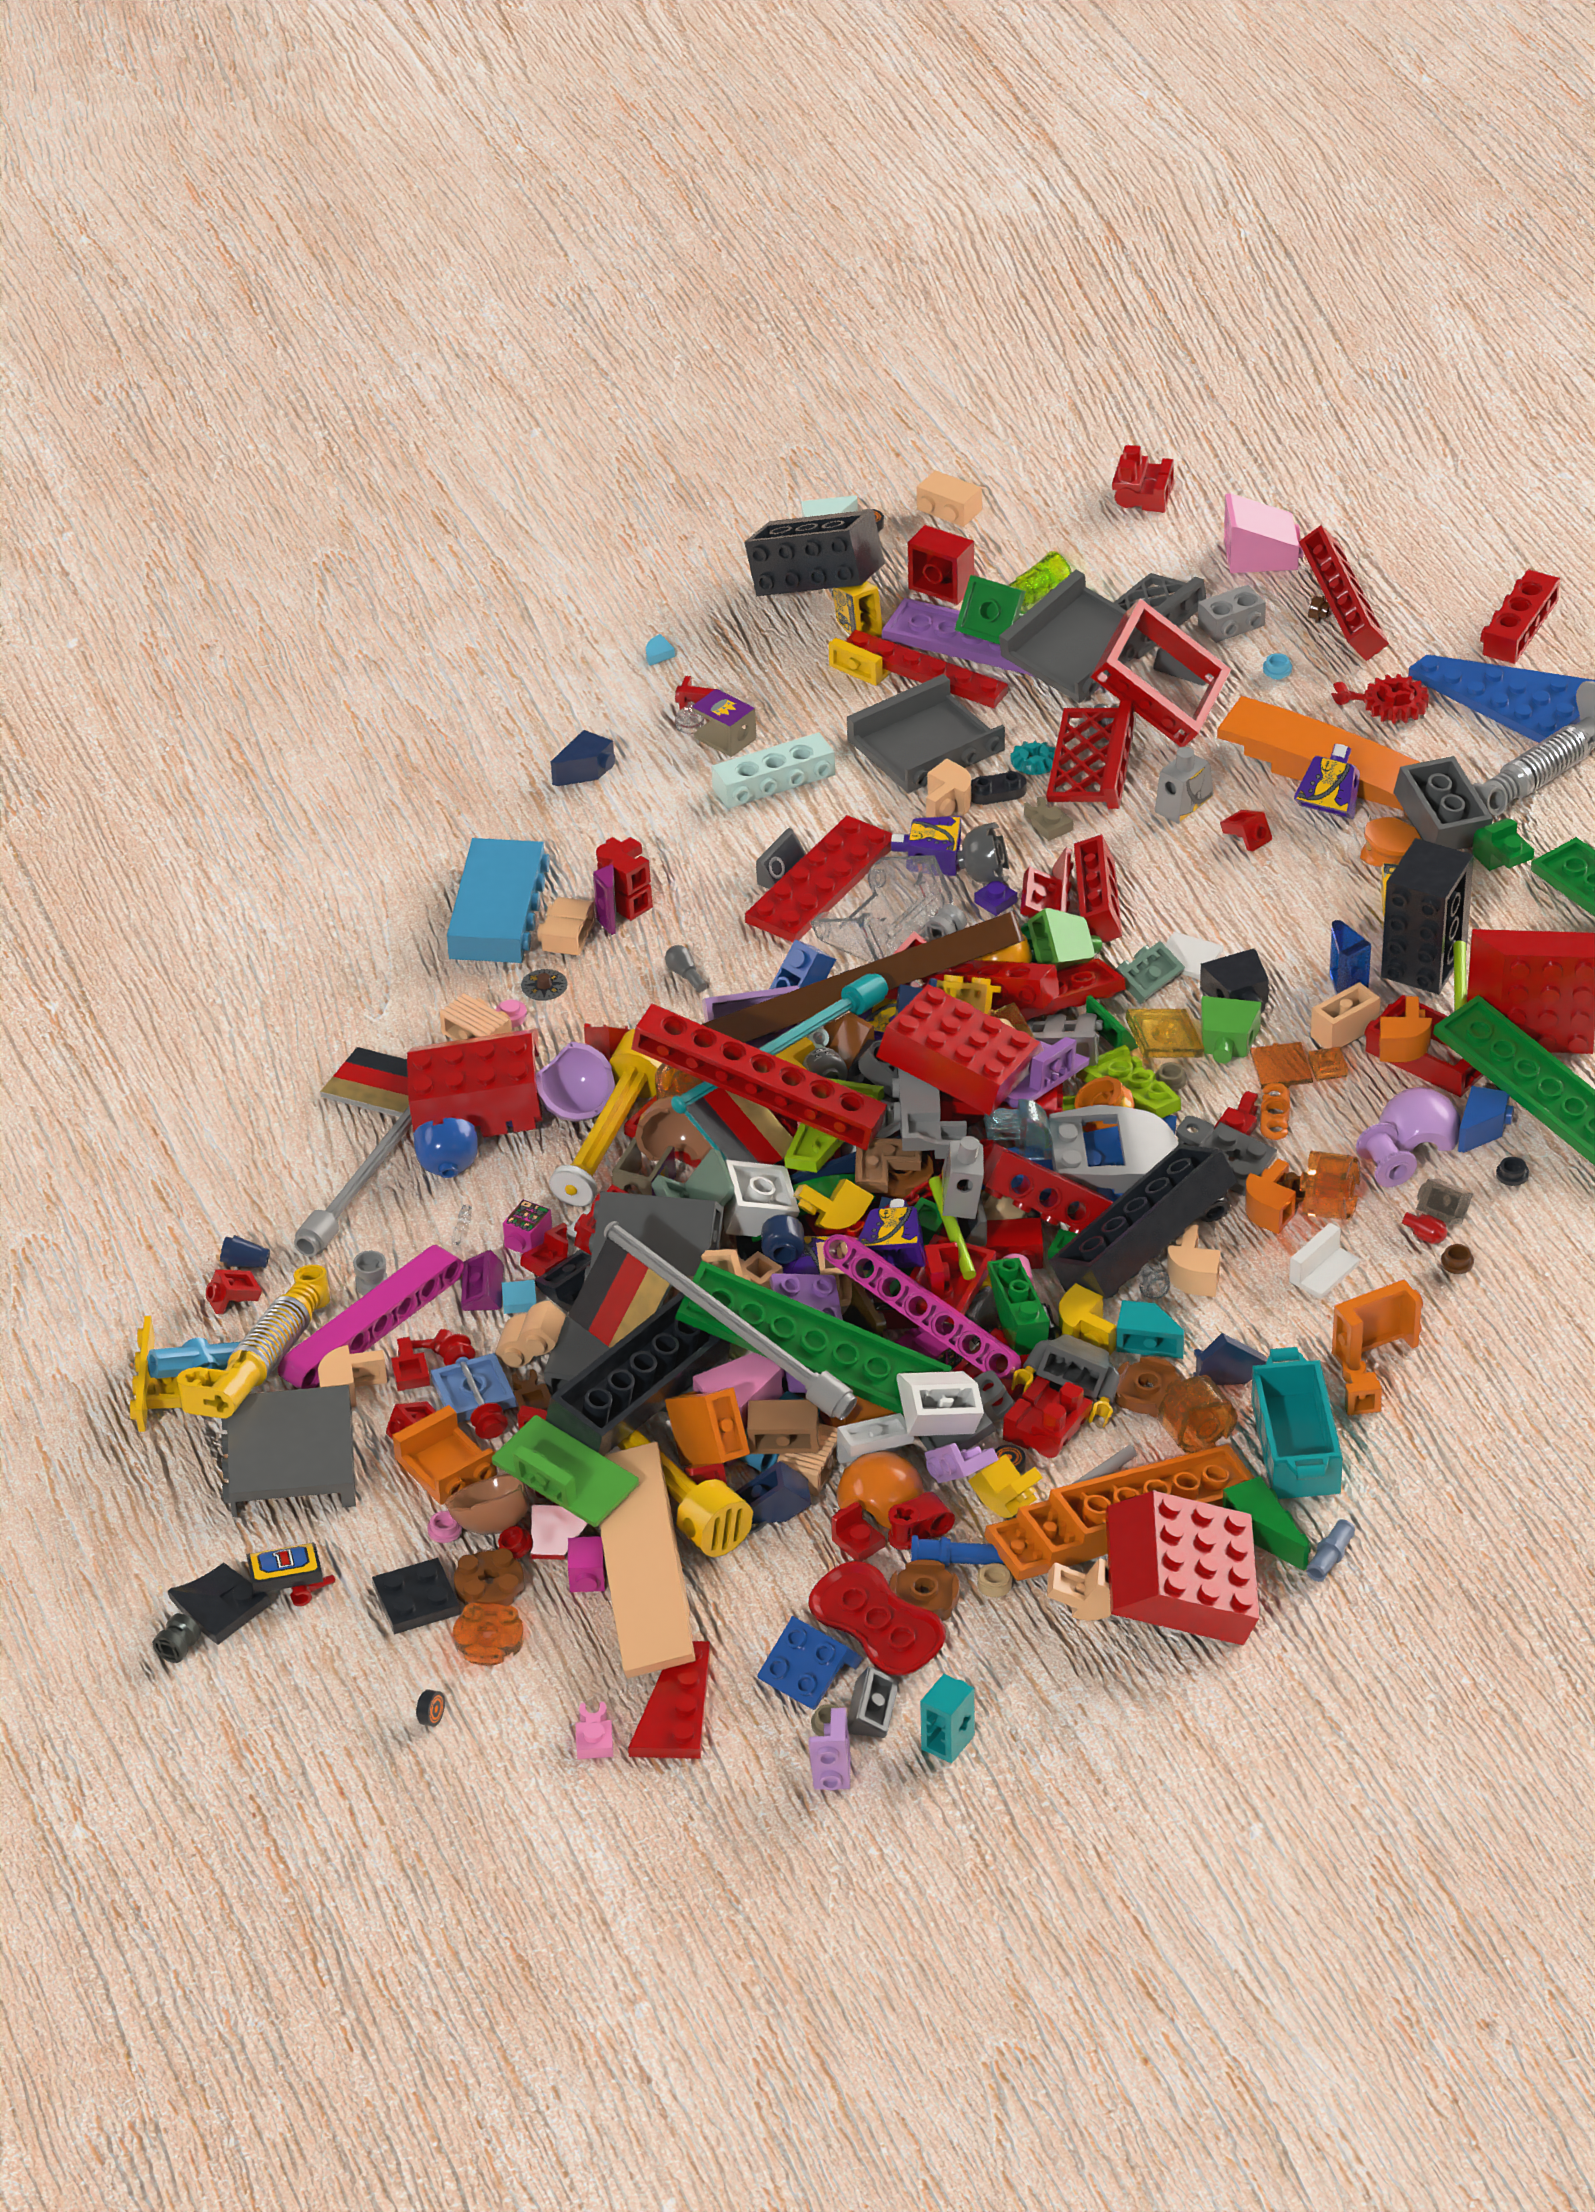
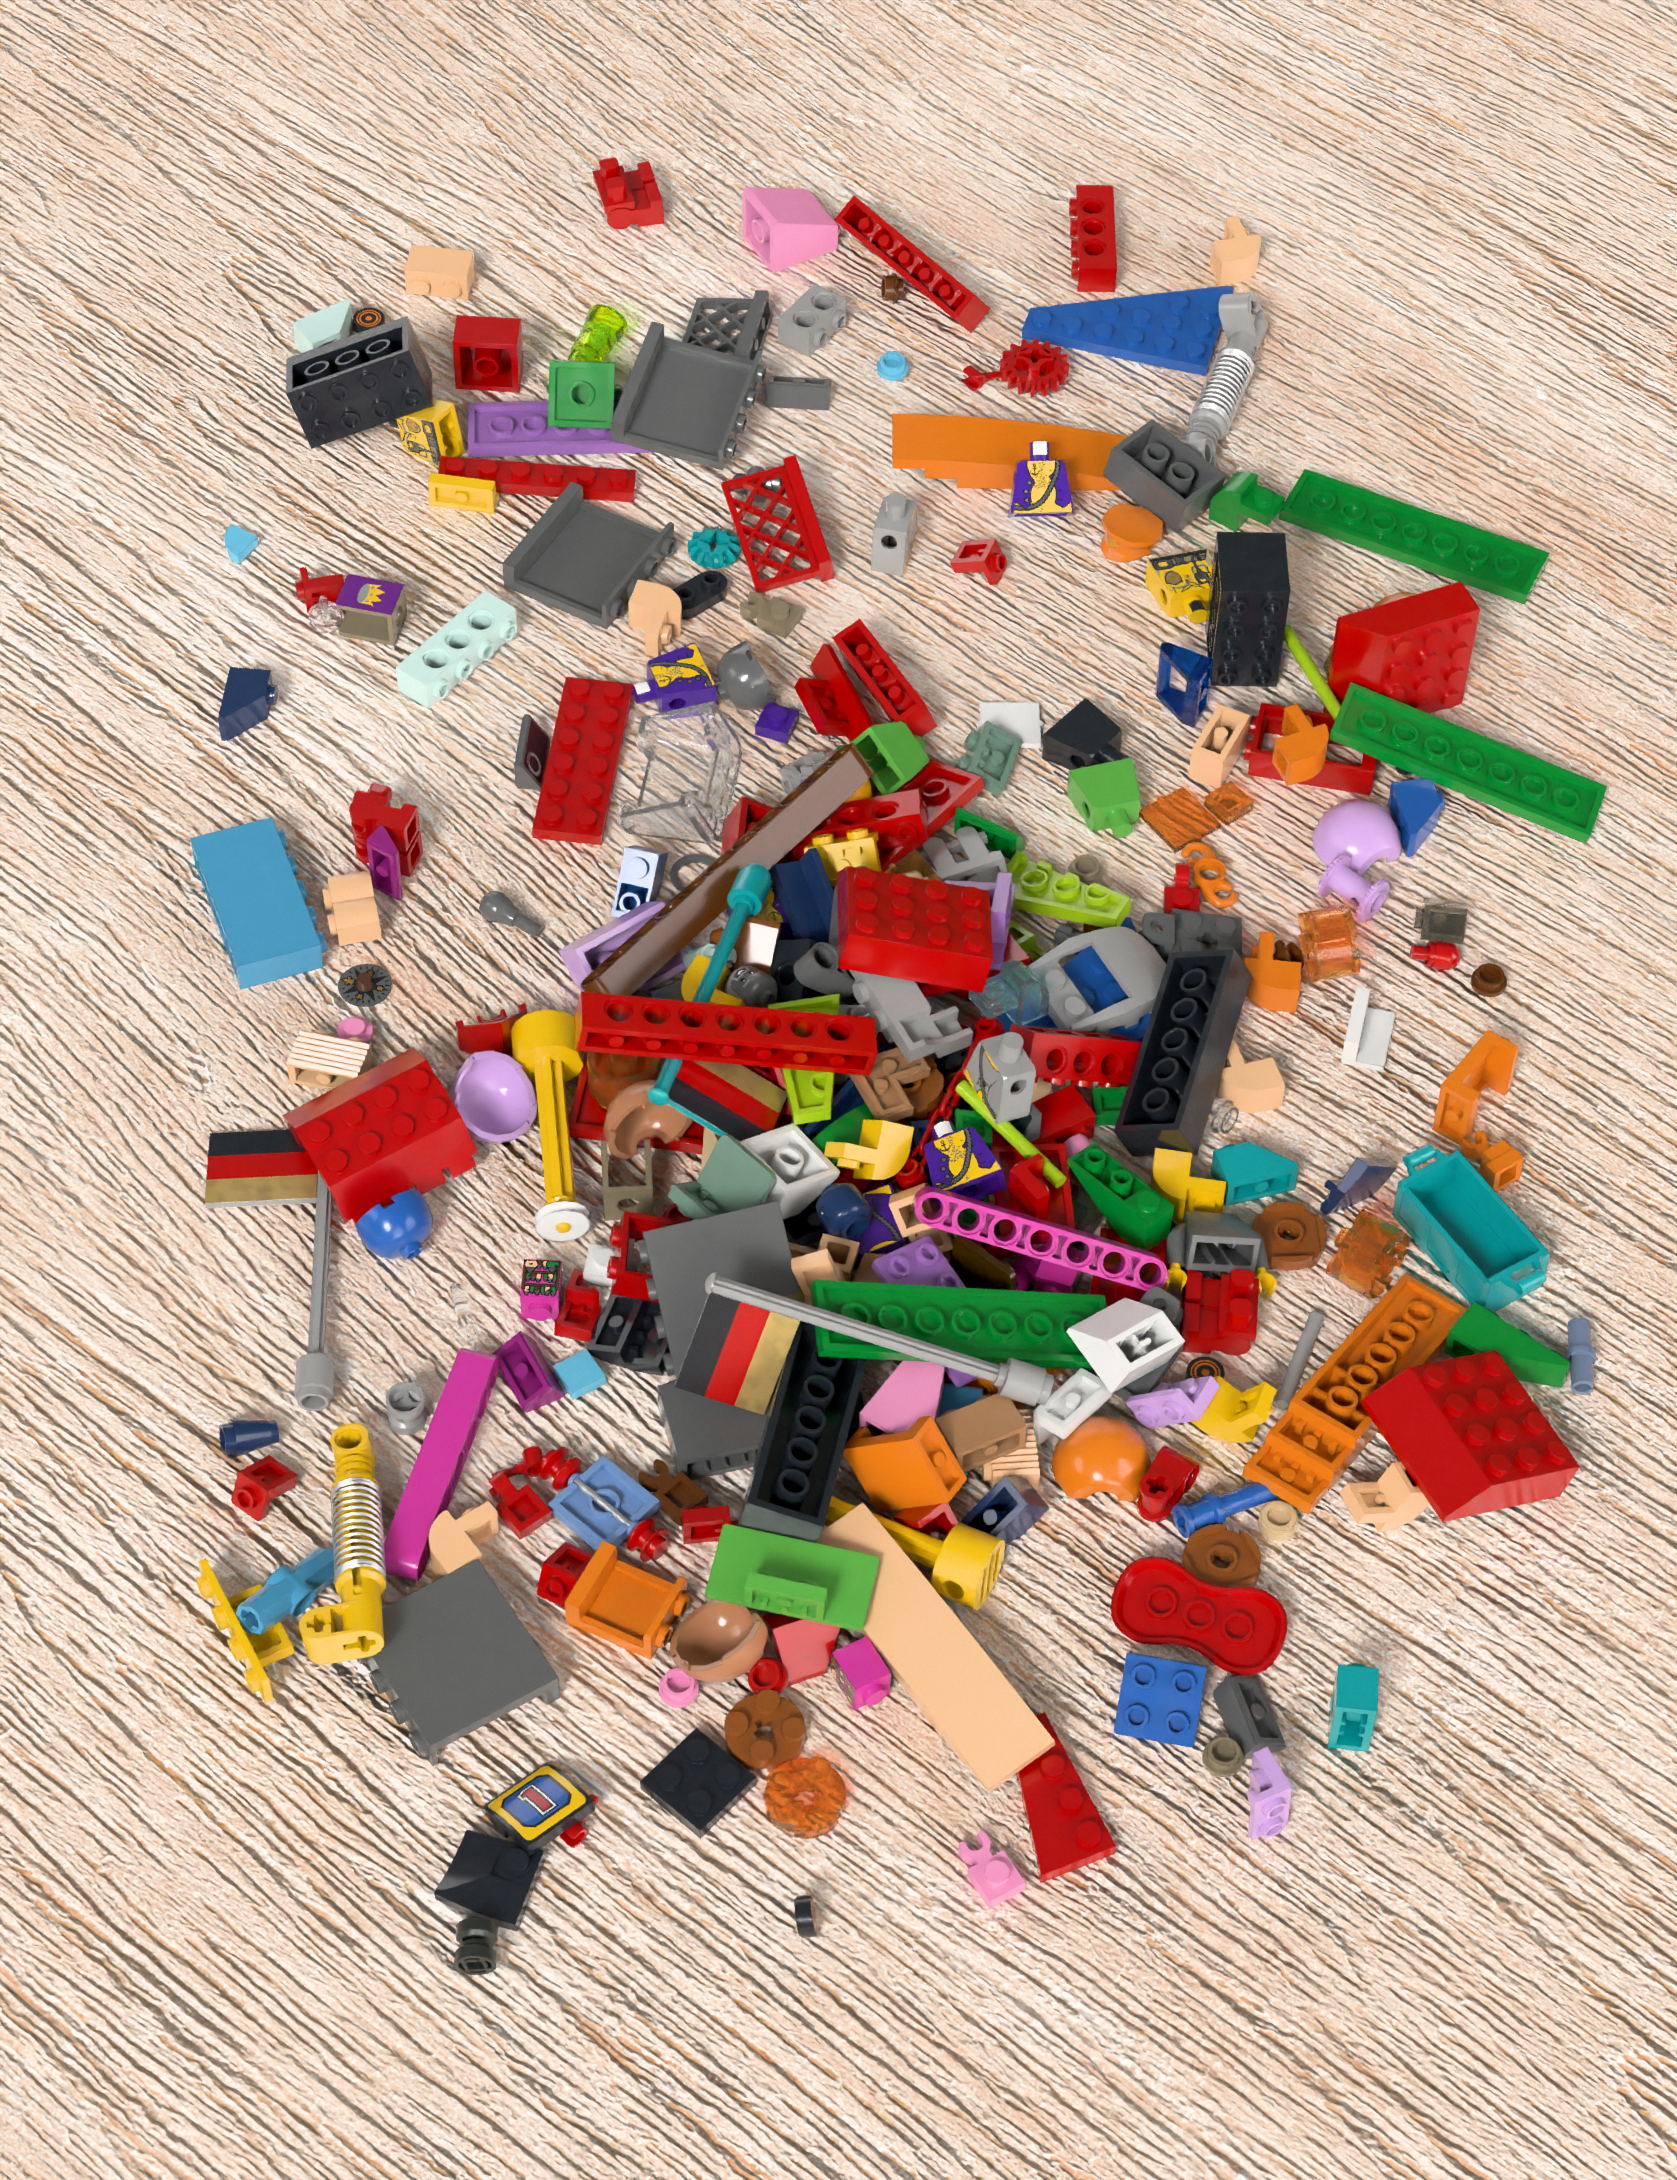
camera: 30 degrees left, 10 degrees up
(530, 1334) = (634, 1420): light nougat brick -> none
(855, 1534) = (1110, 1524): red bracket -> none
(944, 922) = (751, 773): light grey wheel -> none
(1103, 1092) = (1051, 925): orange hat -> none
(1145, 699) = (842, 463): red window -> none
(1164, 1033) = (1048, 823): clear yellow plate -> none
(1512, 1171) = (1477, 863): black plate -> none

